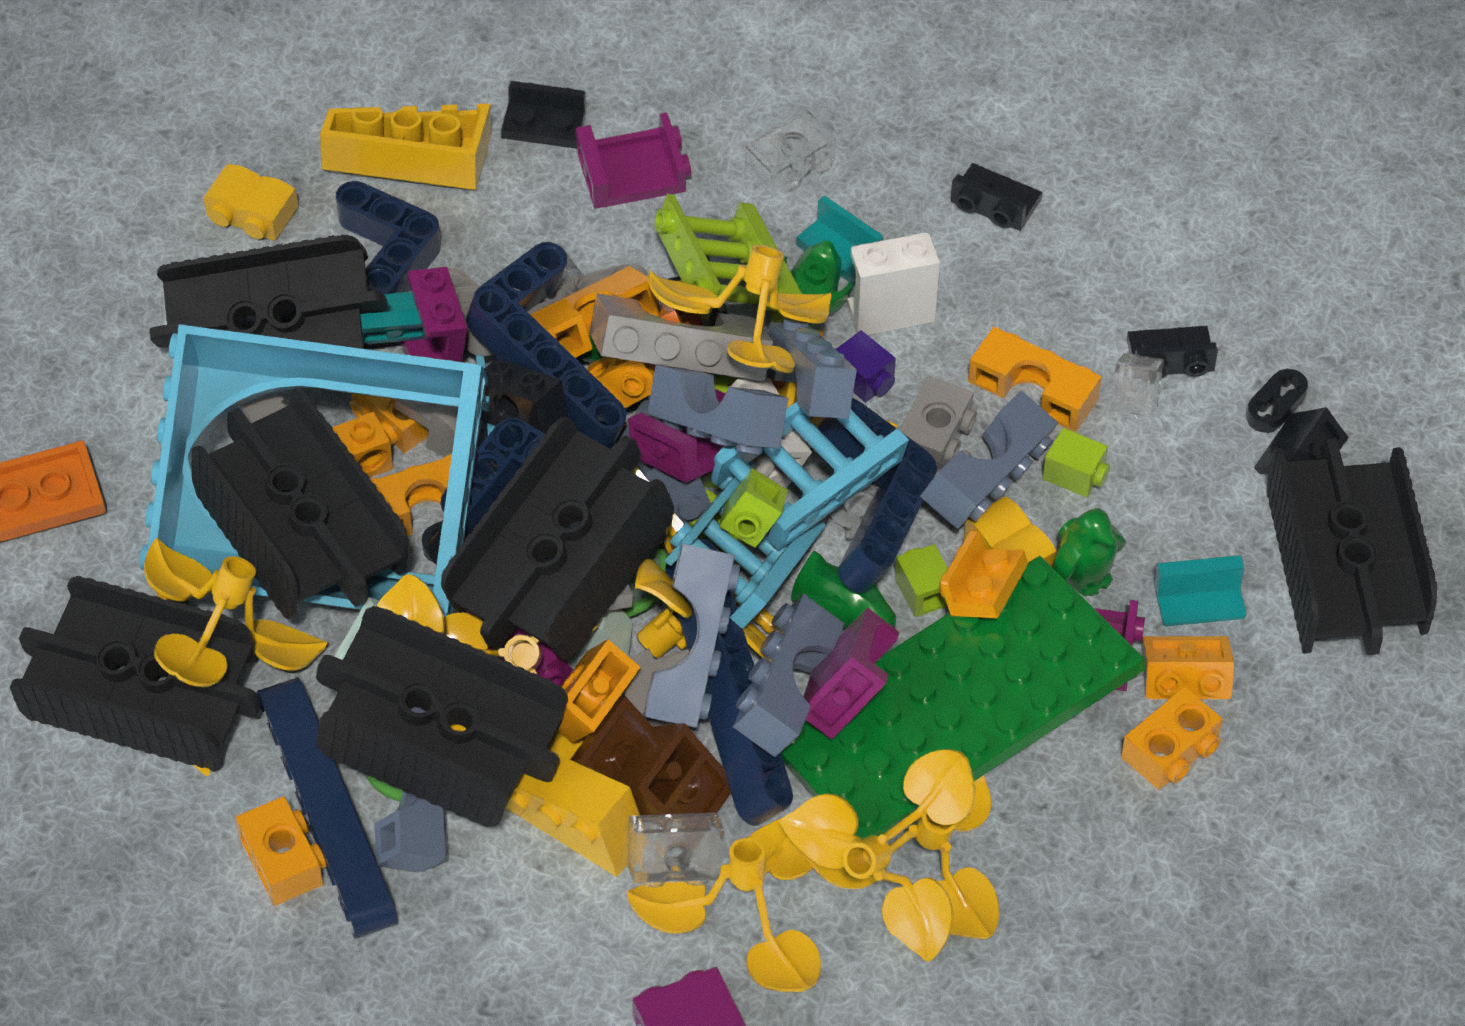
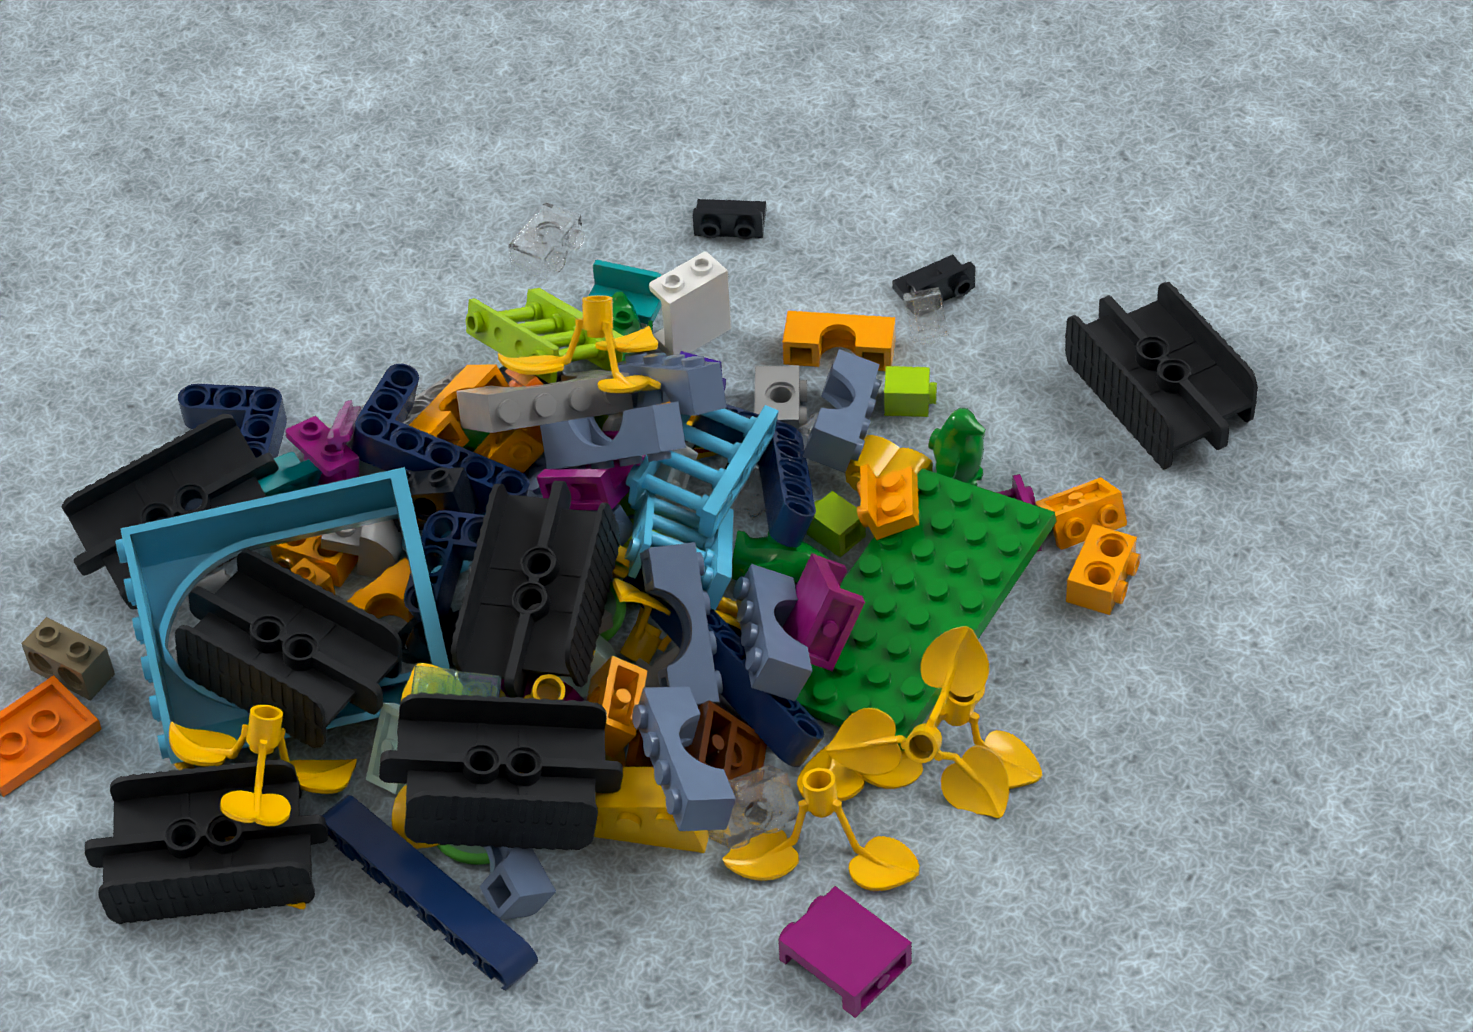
camera: 20 degrees left, 5 degrees down
(105, 428) = (69, 656): none -> dark tan brick
(250, 202) = (103, 435): yellow brick -> none
(278, 827) = (416, 961): light orange brick -> none
(408, 144) = (218, 342): yellow wedge -> none
(431, 611) = (450, 681): none -> clear light blue slope
(464, 290) = (343, 425): none -> magenta axle
(543, 114) = (322, 282): black bracket -> none
(613, 816) = (693, 791): none -> sand blue arch
(633, 164) = (418, 294): magenta panel -> none
(753, 508) = (682, 507): lime brick -> none
(1200, 590) = (1058, 451): teal panel -> none
(1283, 405) = (1031, 289): black beam -> none
(1303, 437) = (1078, 300): black panel -> none

